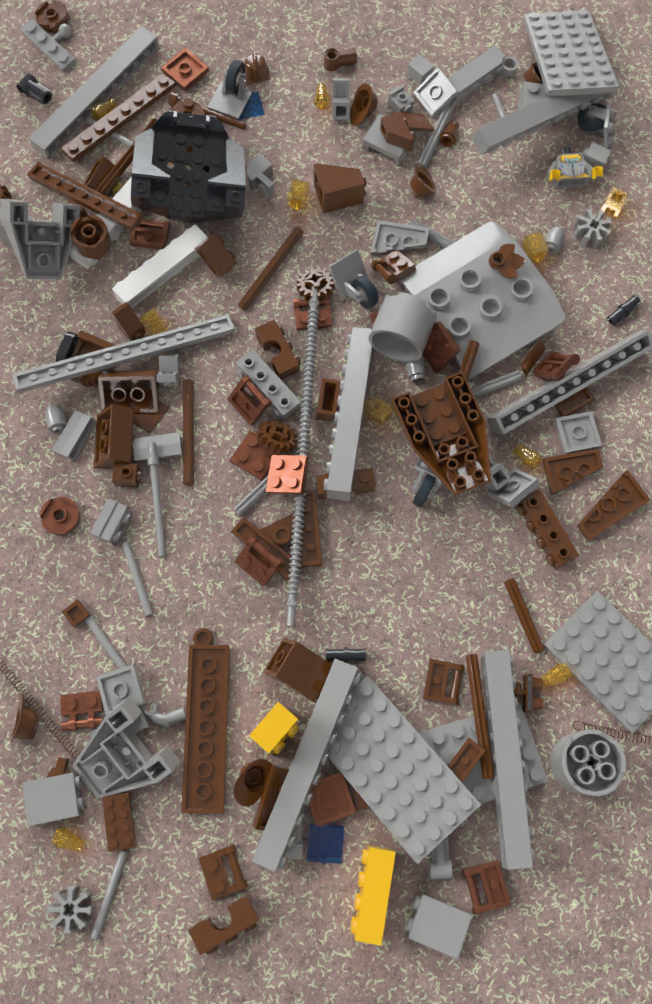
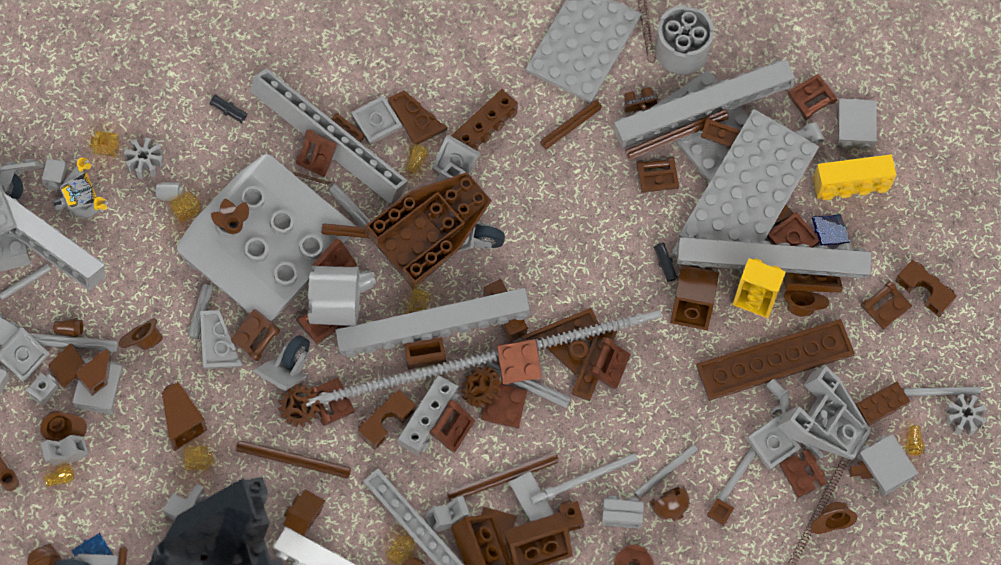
camera: 110 degrees left, 5 degrees down
(99, 567) = (671, 504): none -> reddish brown cylinder
(203, 637) = (697, 391): reddish brown tile -> none
(556, 675) = (615, 84): clear yellow cone -> none
(615, 504) = (438, 72): reddish brown wing -> none

